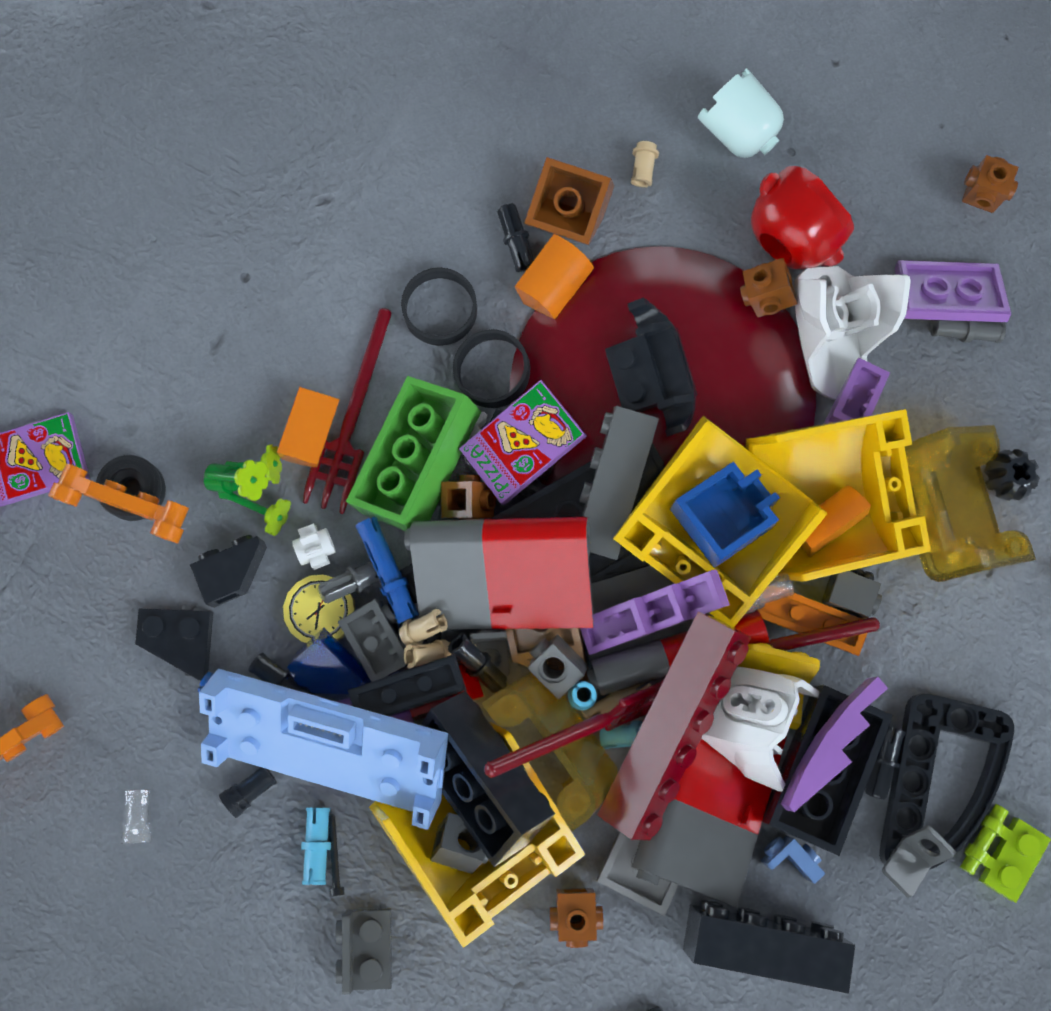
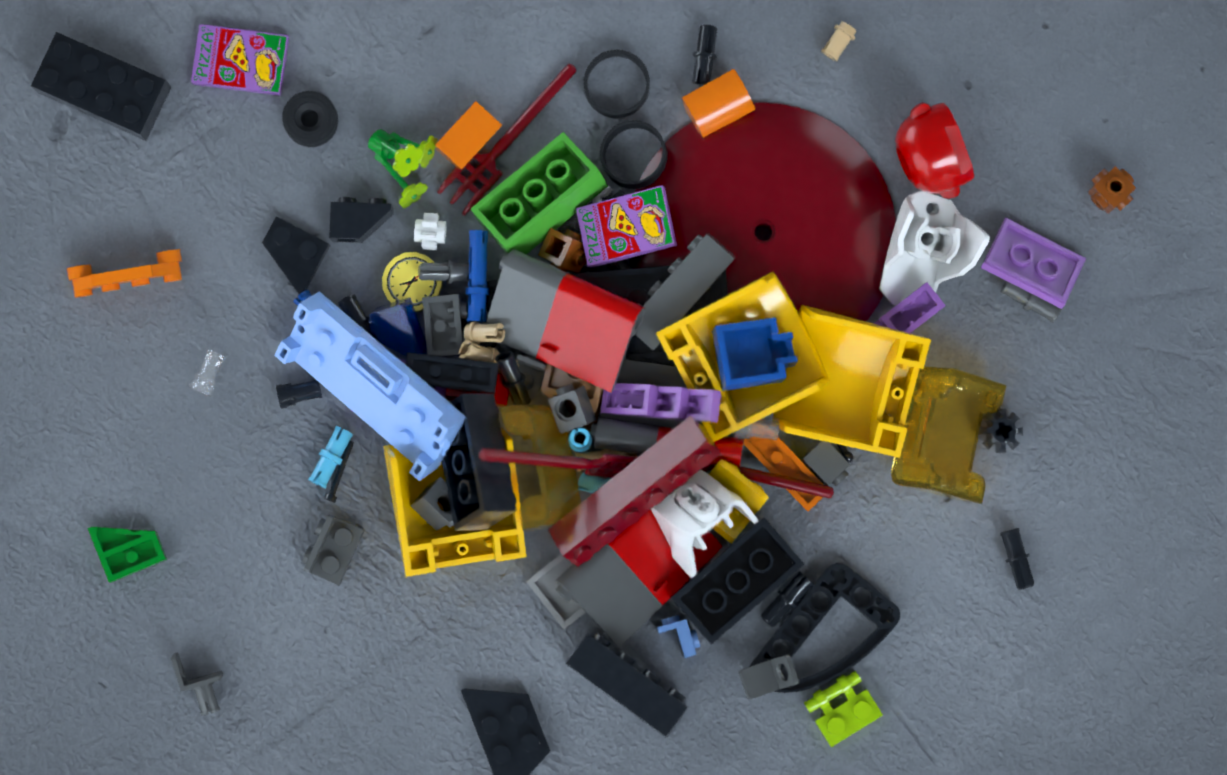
camera: 30 degrees right, 5 degrees up
(166, 519) = (331, 161): orange plate -> none
(569, 201) = (759, 48): dark orange slope -> none
(573, 902) = (495, 586): dark orange brick -> none
(654, 369) = (756, 216): black plate -> none
(744, 116) = (937, 42): light aqua cylinder -> none
(768, 288) = (882, 193): dark orange brick -> none
(825, 755) = (735, 566): medium lavender slope -> none
(843, 512) = (836, 399): orange brick -> none

